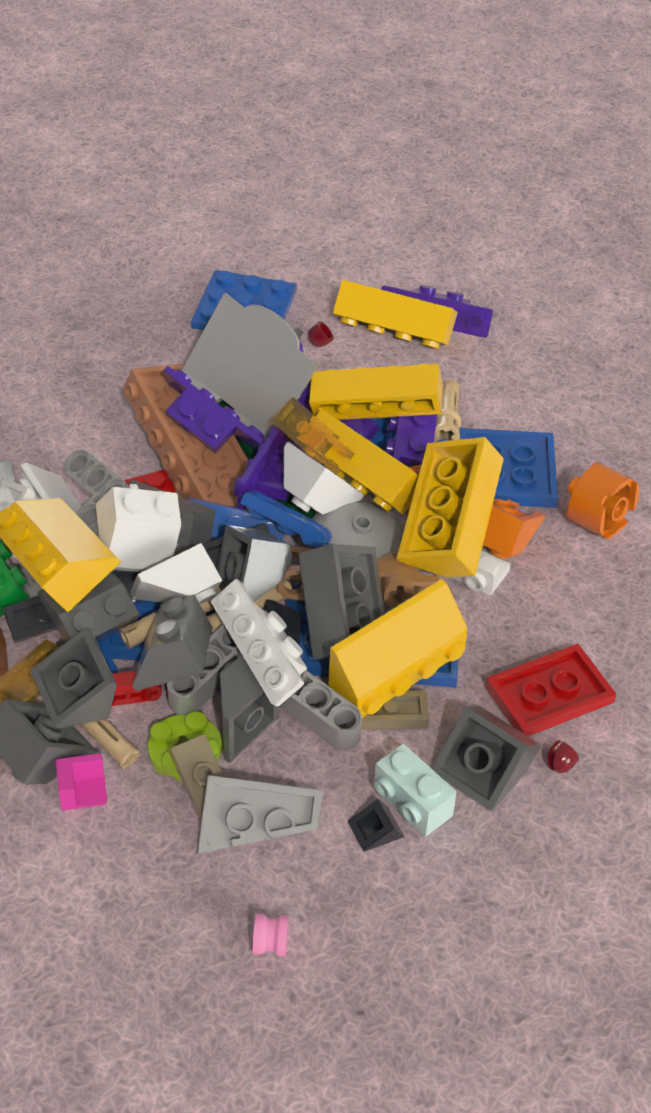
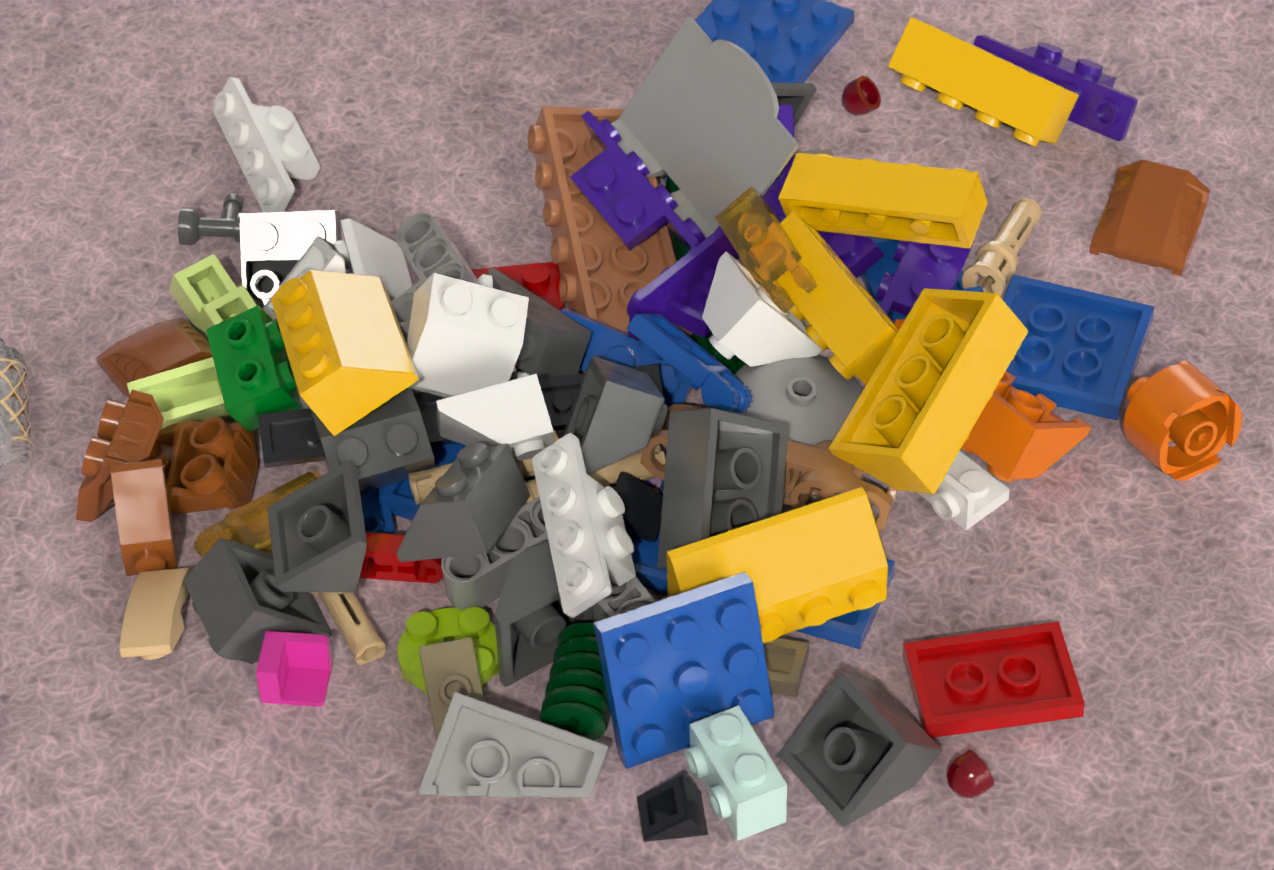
camera: 20 degrees right, 0 degrees up
(286, 748) = (576, 685): none -> dark green piece
(359, 725) = (682, 665): none -> blue plate
(527, 378) = (1152, 215): none -> dark orange slope

